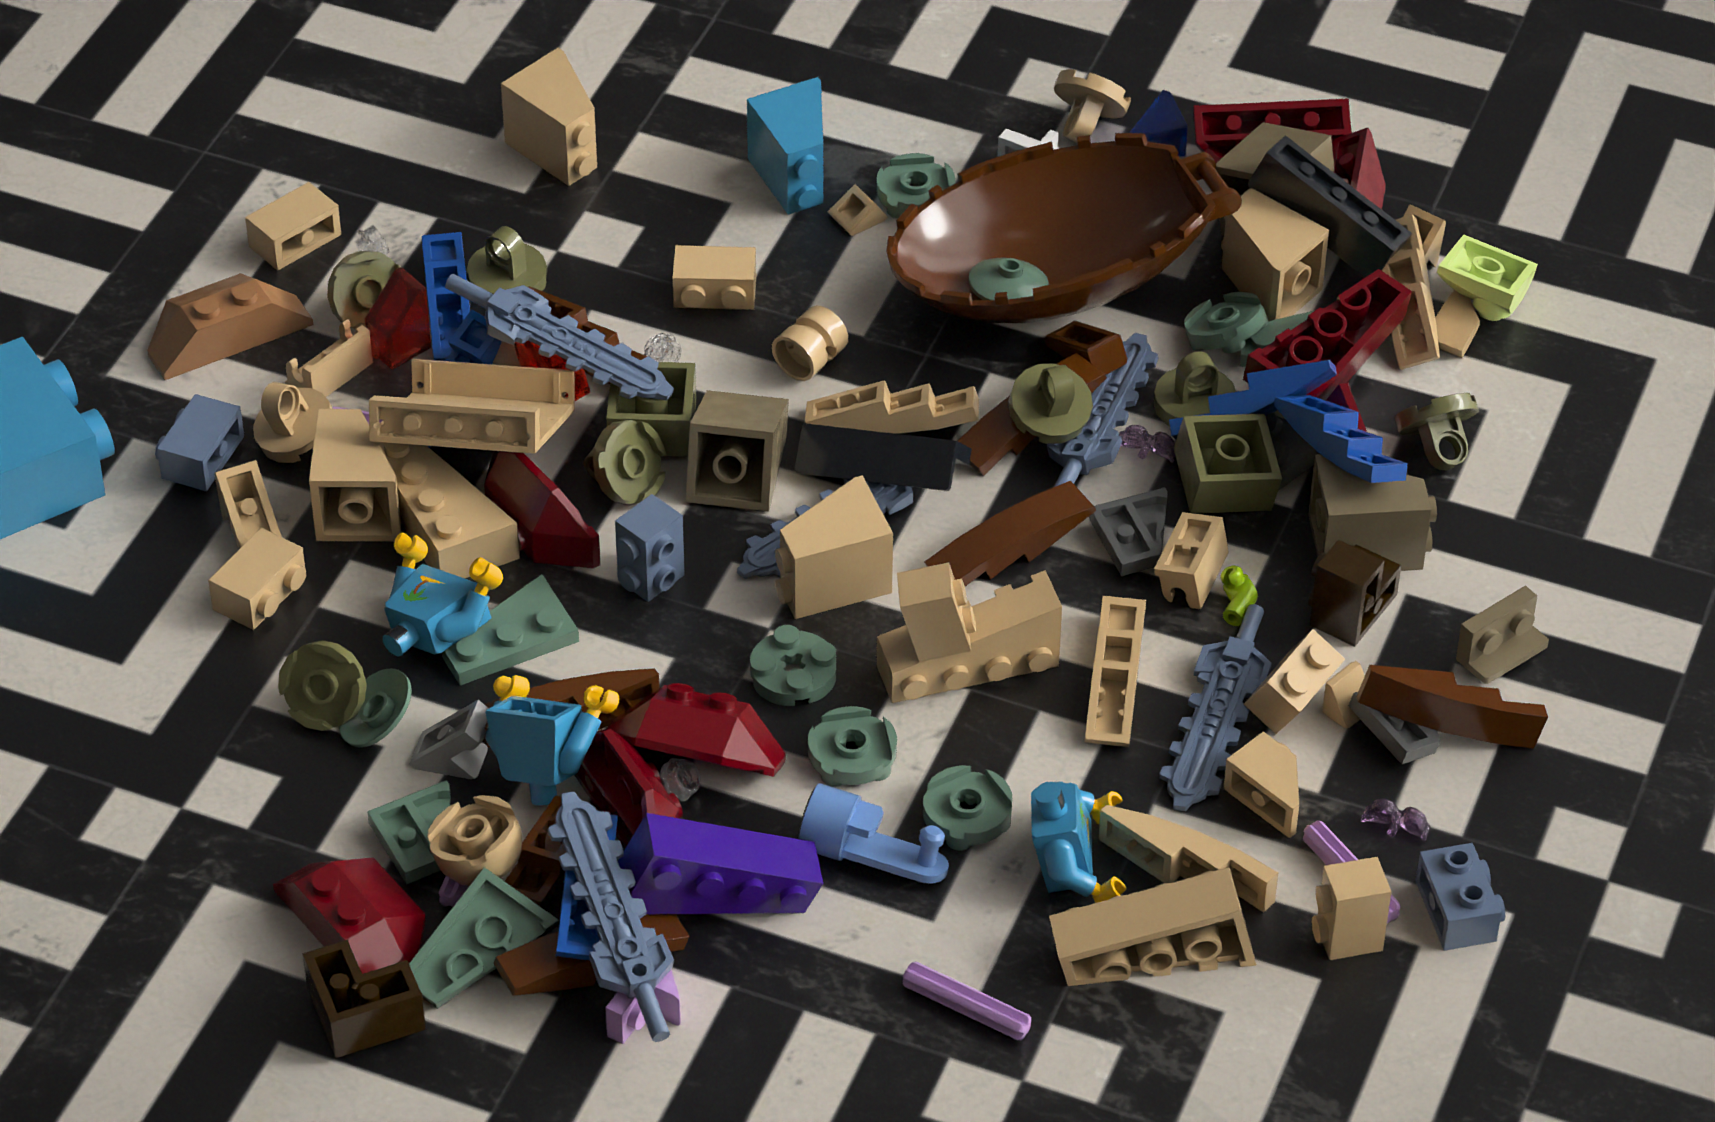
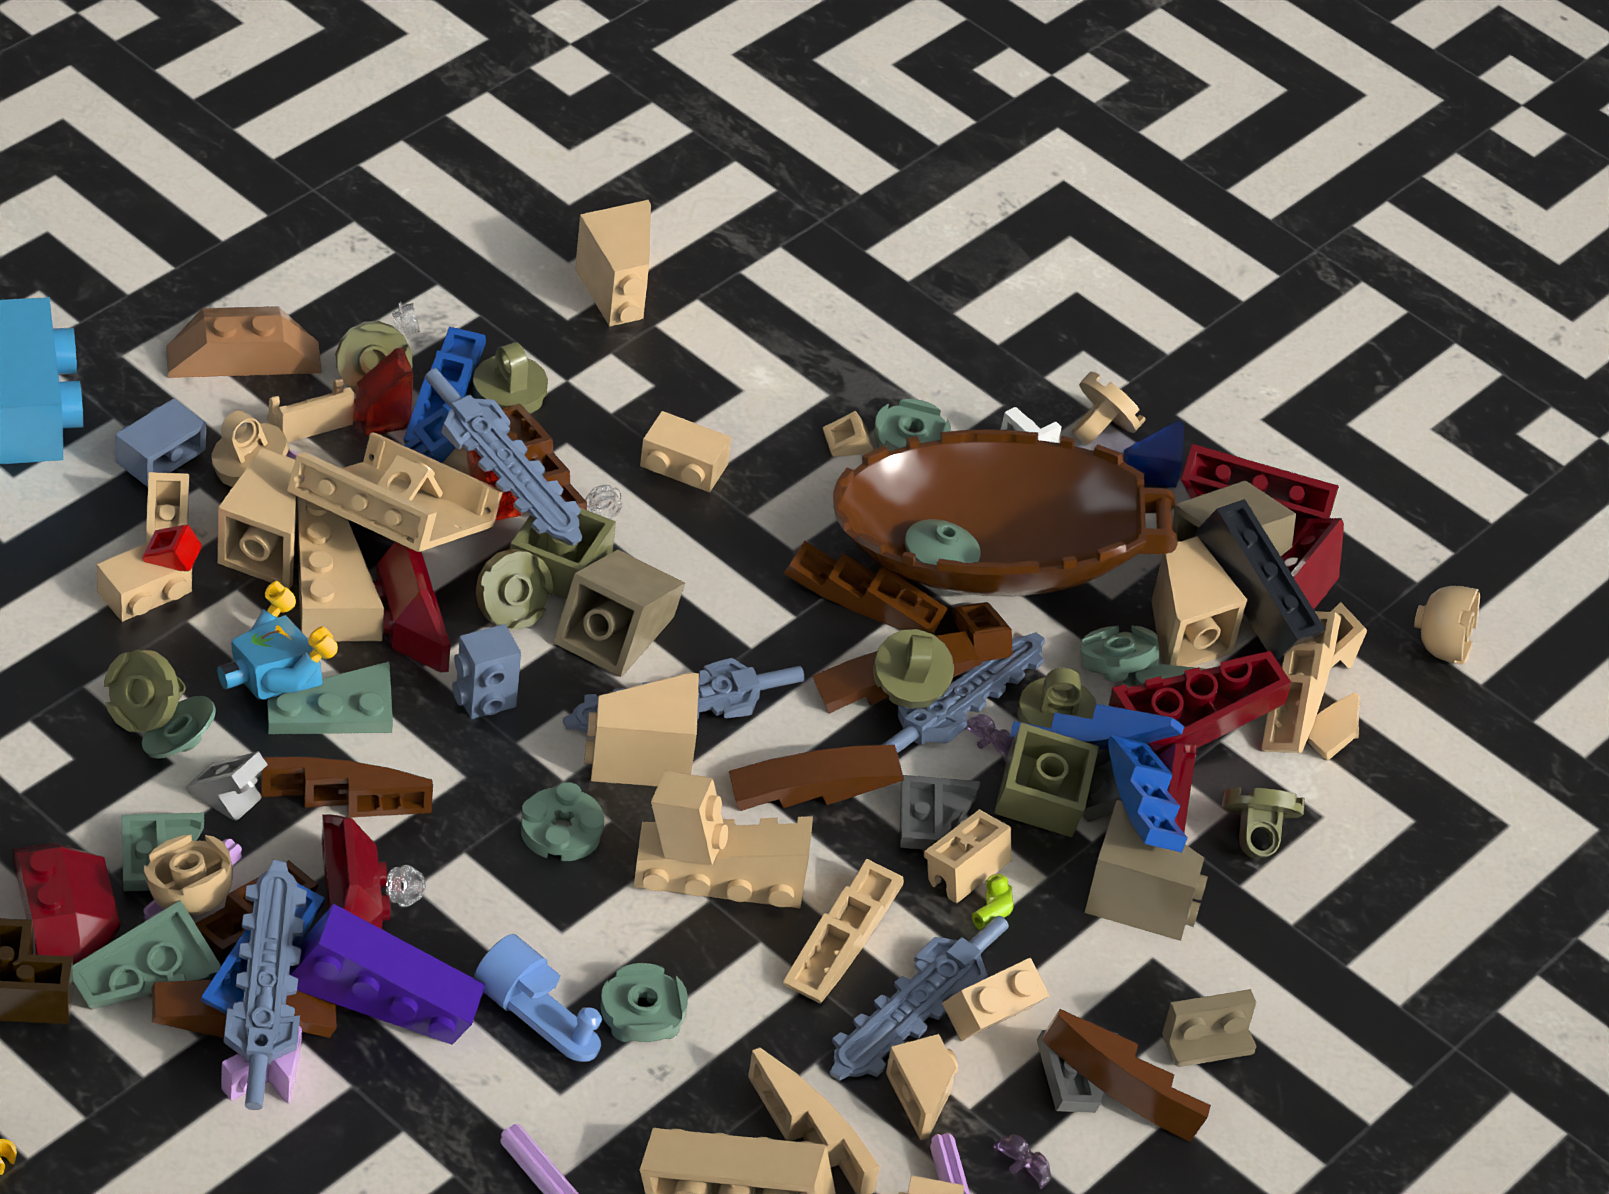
camera: 15 degrees right, 0 degrees up
(277, 537) = (173, 548): none -> red slope
(293, 226) = (347, 280): tan brick -> none
(480, 385) = (416, 474): none -> tan bracket
(542, 738) = (295, 805): dark azure torso -> none
(701, 728) = (444, 850): dark red wedge -> none
(788, 143) = (817, 354): dark azure slope -> none
(810, 343) = (731, 541): tan wheel -> none
(852, 766) = (567, 931): sand green plate -> none
(879, 457) = (735, 663): black panel -> none
(900, 412) = (764, 622): tan slope -> none
(971, 350) = (873, 595): none -> reddish brown slope
(1065, 838) = (708, 1063): dark azure torso -> none
(1339, 693) = (1031, 1024): tan slope -> none
(1351, 590) = (1096, 935): dark brown brick -> none
(1487, 276) = (1384, 693): yellowish green slope -> none
(1509, 191) = (1448, 622): none -> tan cylinder

